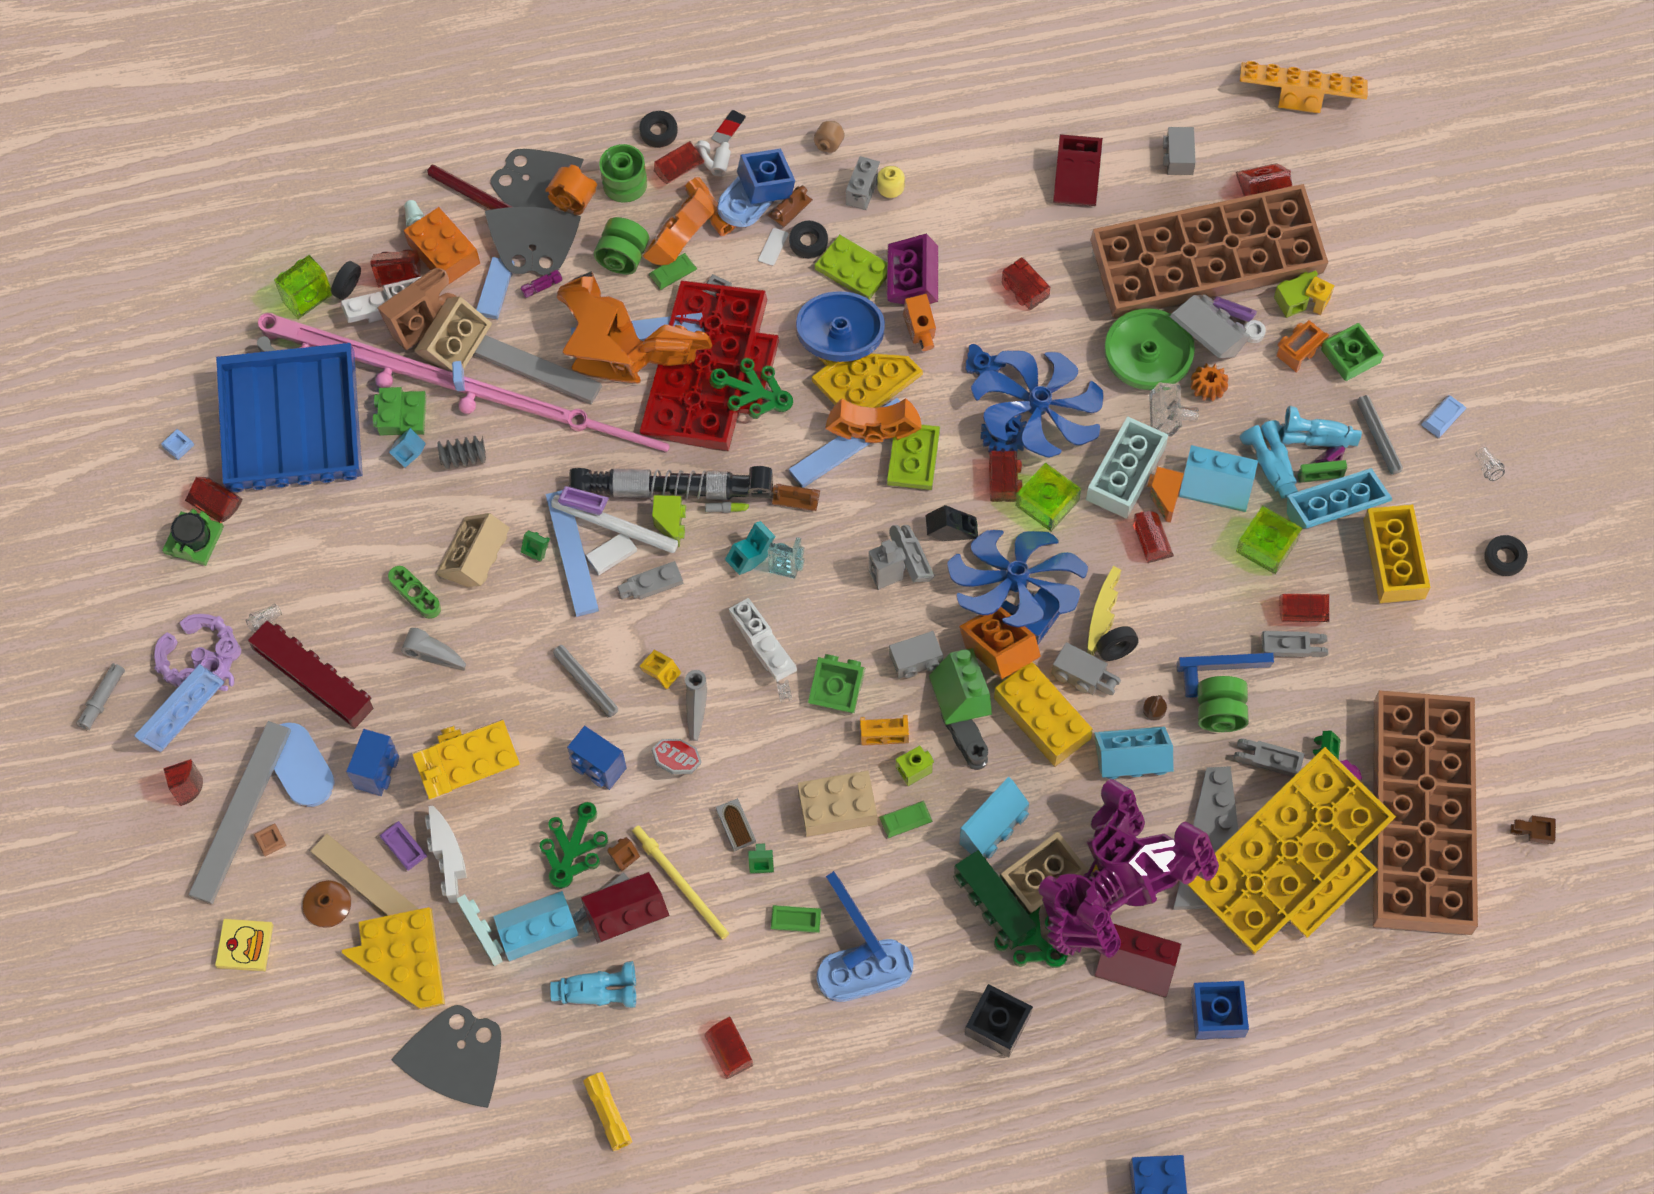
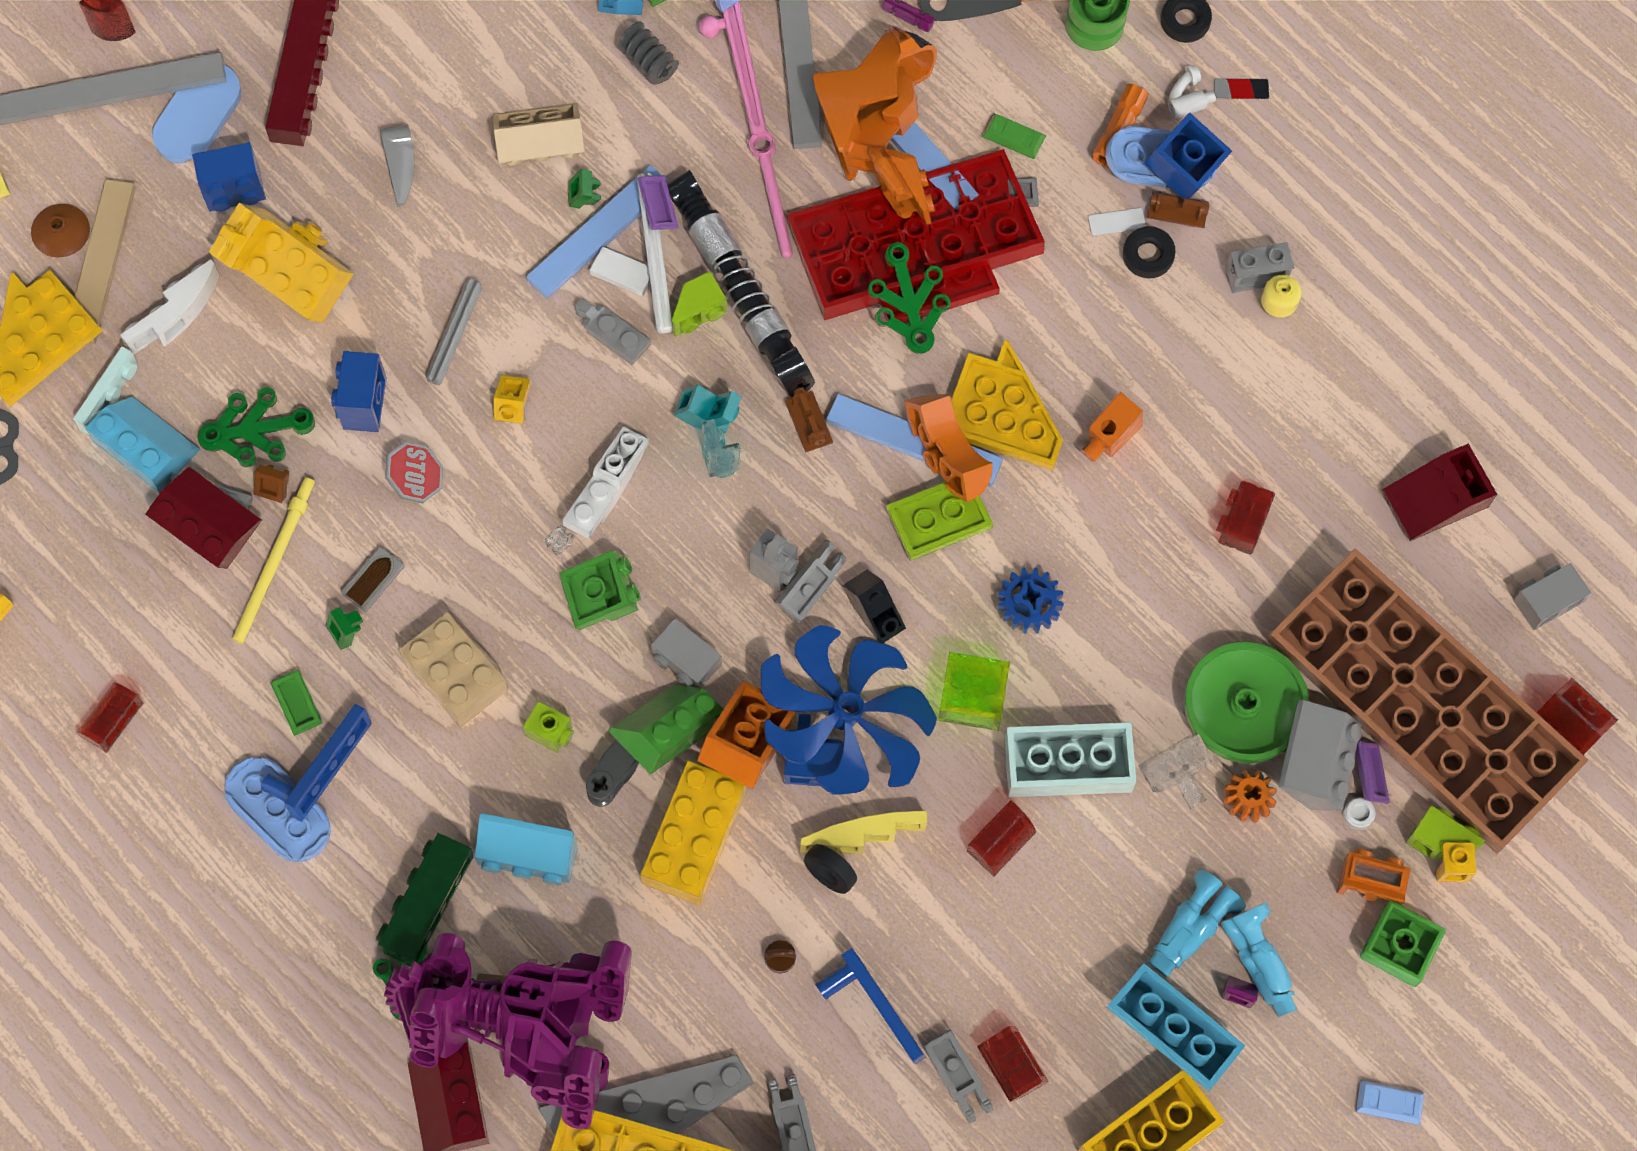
camera: 55 degrees right, 5 degrees up
(269, 839) = (99, 135): nougat tile -> none
(403, 845) = (161, 263): medium lavender tile -> none
(411, 582) = (460, 117): bright green beam -> none
(592, 987) = (100, 539): medium azure piece -> none
(621, 245) = (992, 63): bright green wheel -> none
(677, 163) = (1152, 60): clear red brick -> none
(679, 230) = (1065, 110): orange brick -> none
(695, 702) = (493, 457): light grey piece -> none
(726, 507) = (751, 355): light grey piece -> none
(829, 135) = (1297, 197): medium nougat head -> none
(840, 326) = (1051, 346): blue dish -> none
(853, 267) = (1145, 320): lime plate -> none
(884, 731) = (575, 671): light orange hinge -> none
(905, 819) = (483, 755): bright green tile -> none
(912, 269) = (1178, 385): magenta slope -> none
(976, 357) = (1117, 537): blue animal -> none
(998, 1020) = (286, 982): black brick -> none
(1004, 476) = (974, 628): clear red brick -> none
(1037, 401) = (1040, 630): blue piece -> none
(1050, 858) = (492, 934): tan slope -> none
(1083, 671) = (775, 849): light grey brick -> none
(1134, 752) = (706, 960): medium azure slope -> none
(1165, 490) = (1070, 821): orange slope -> none
(1218, 478) = (1124, 873): medium azure slope -> none
(1222, 704) = (811, 1034): bright green wheel -> none
(1268, 540) = (1075, 974): clear neon green brick -> none
(1322, 471) = (1212, 991): bright green tile -> none
(1379, 434) = (1311, 1036): light grey axle -> none

